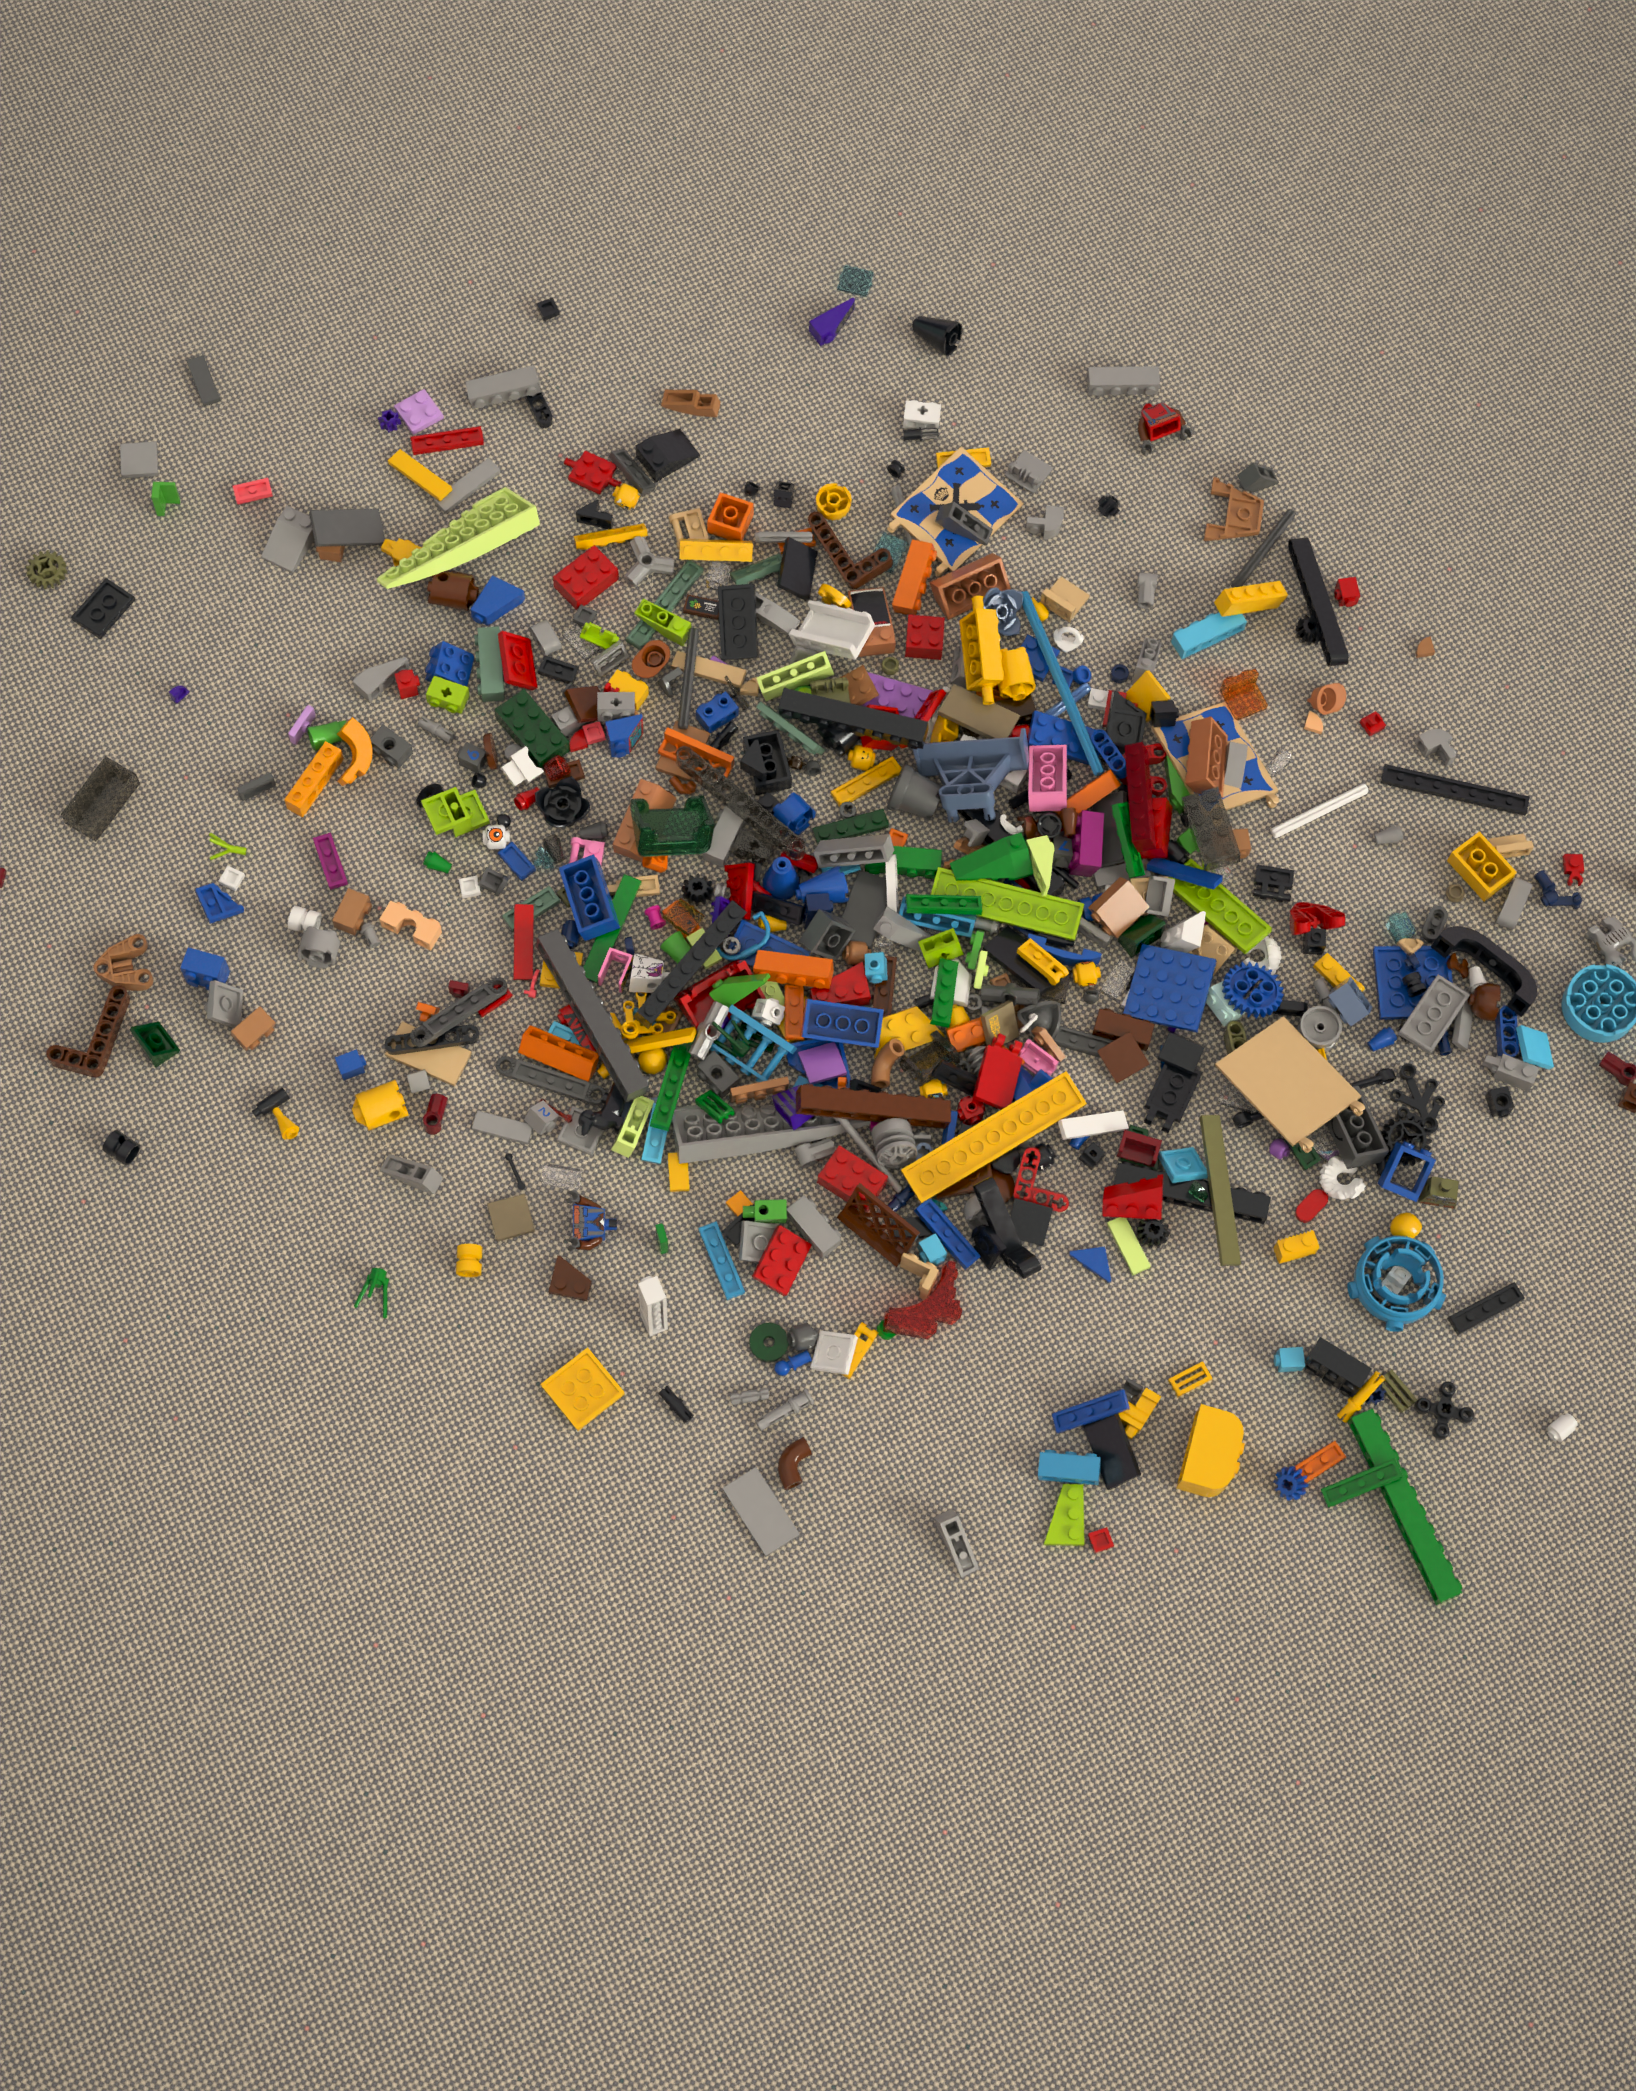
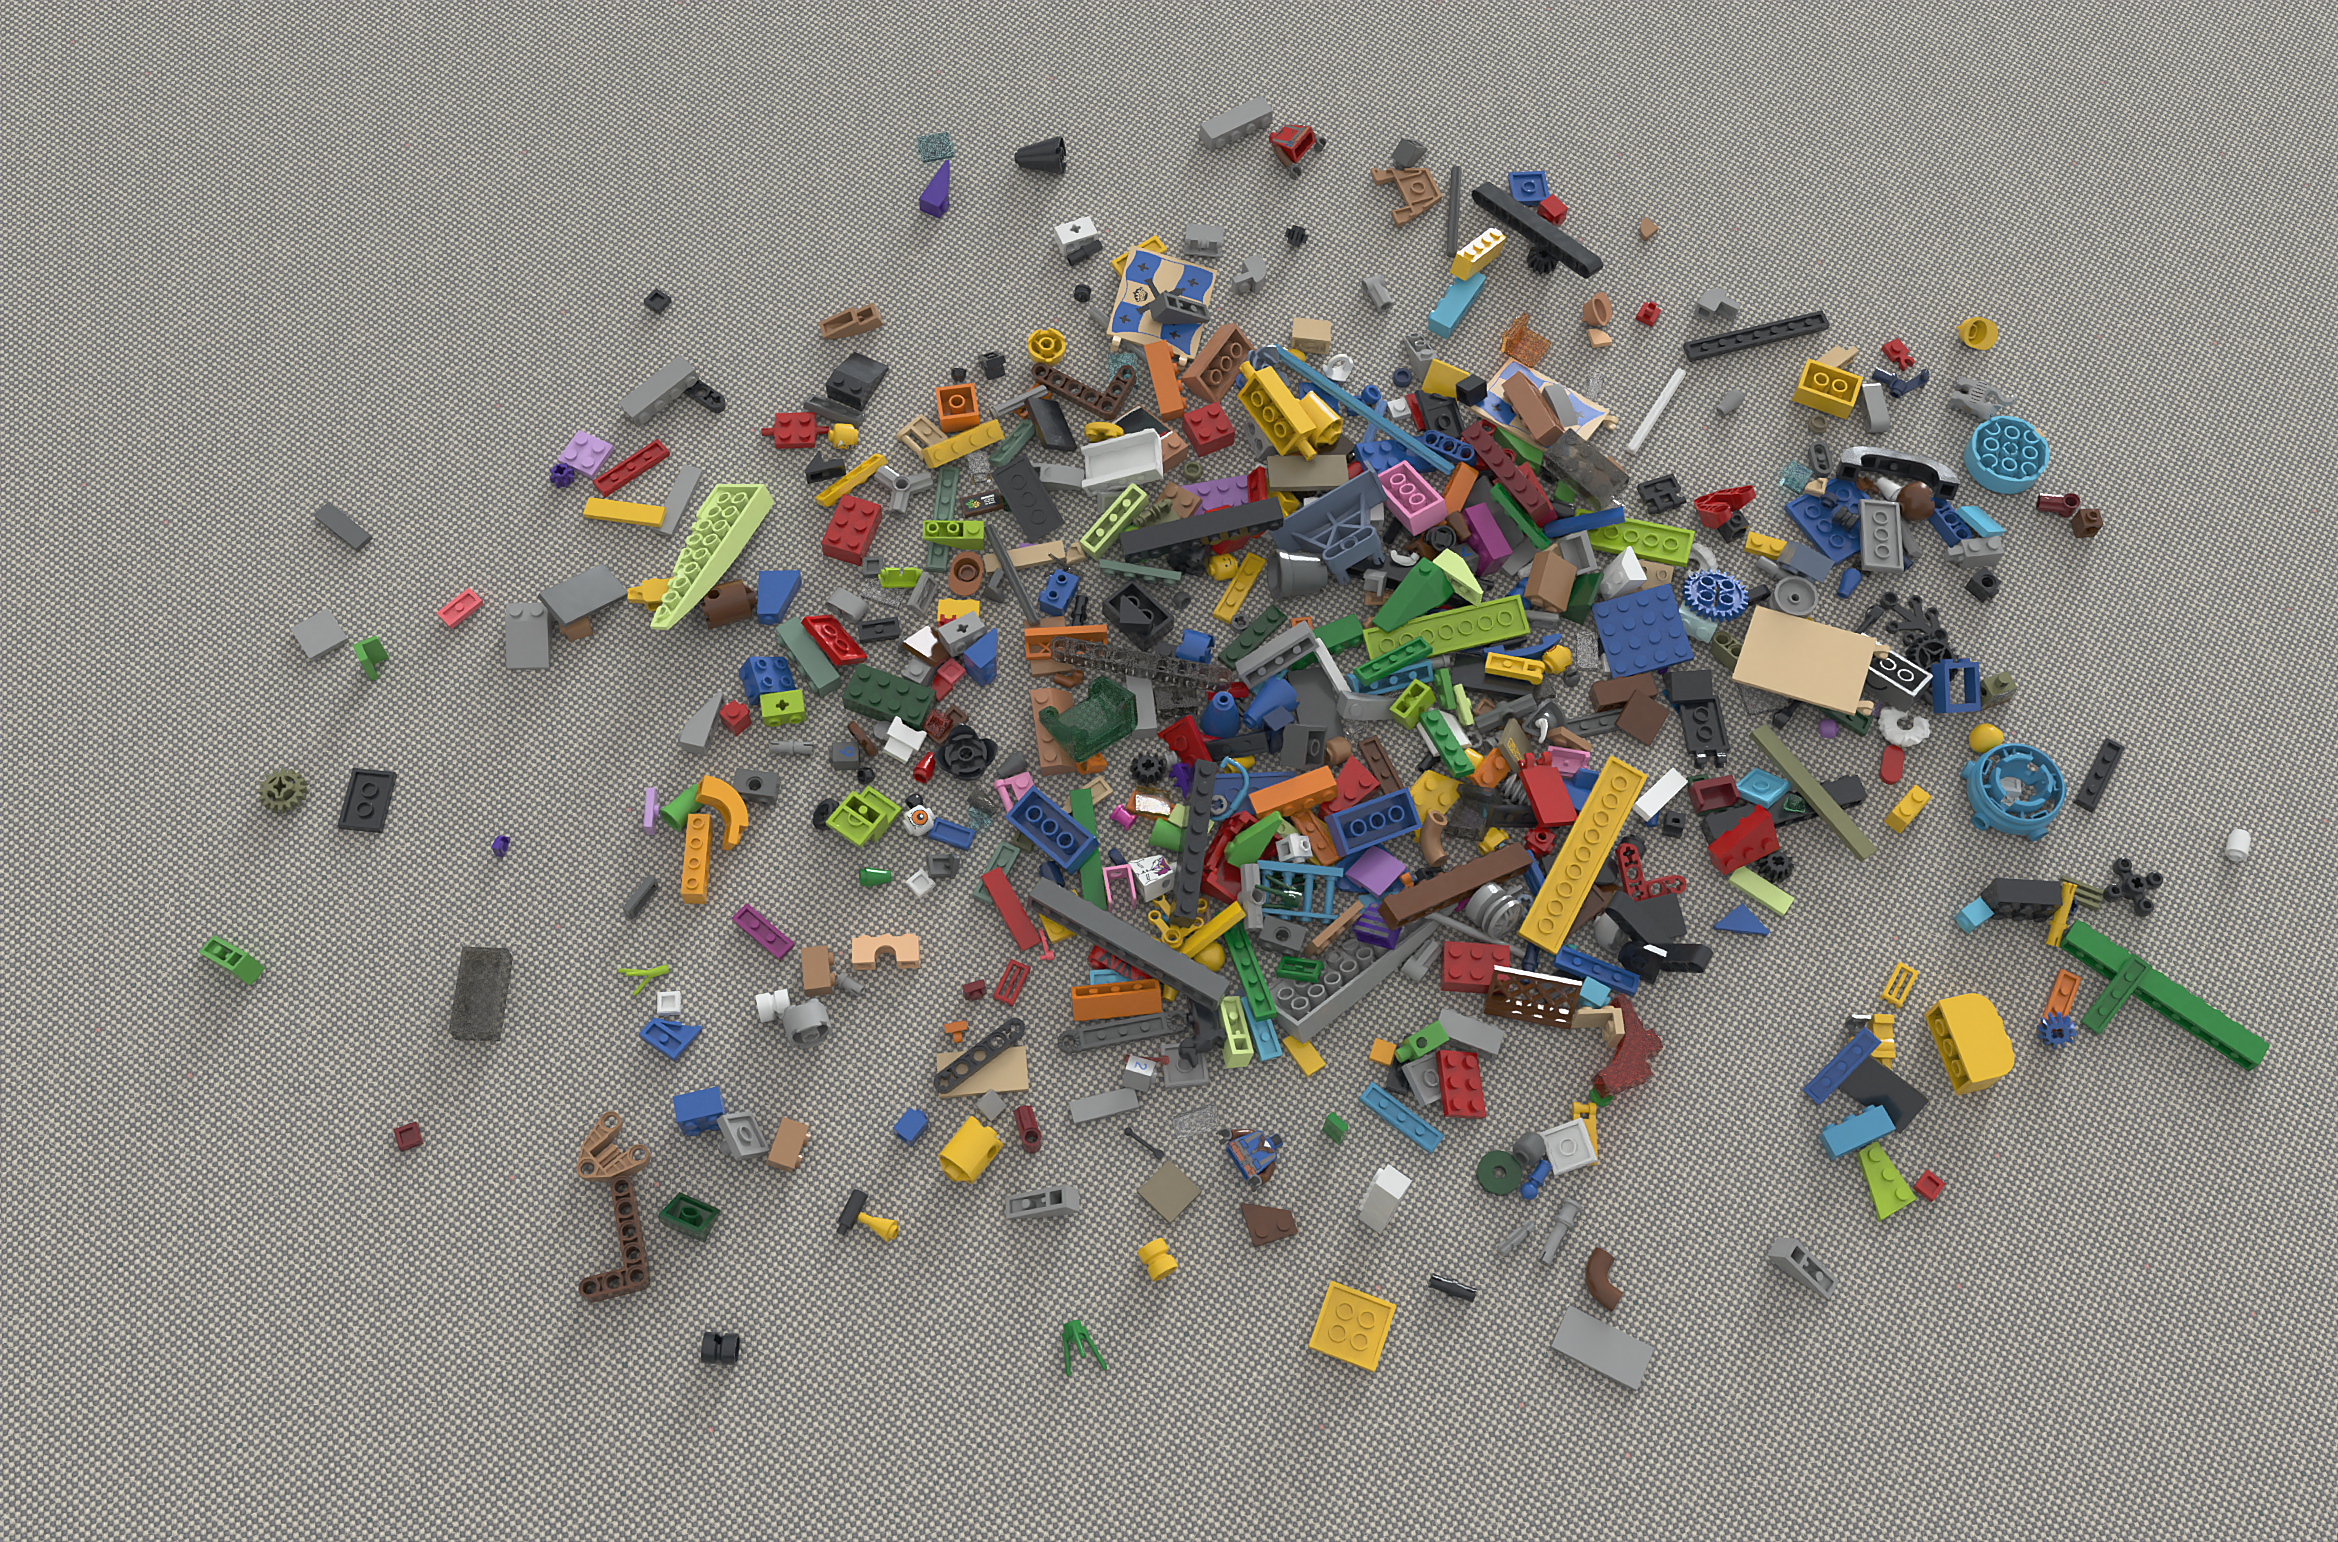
camera: 30 degrees left, 5 degrees down
(458, 1011) = (991, 1012): dark grey plate -> none
(795, 762) = (1165, 601): dark brown plate -> none
(876, 967) = (1367, 753): medium azure brick -> none
(1342, 560) = (1528, 187): none -> blue plate

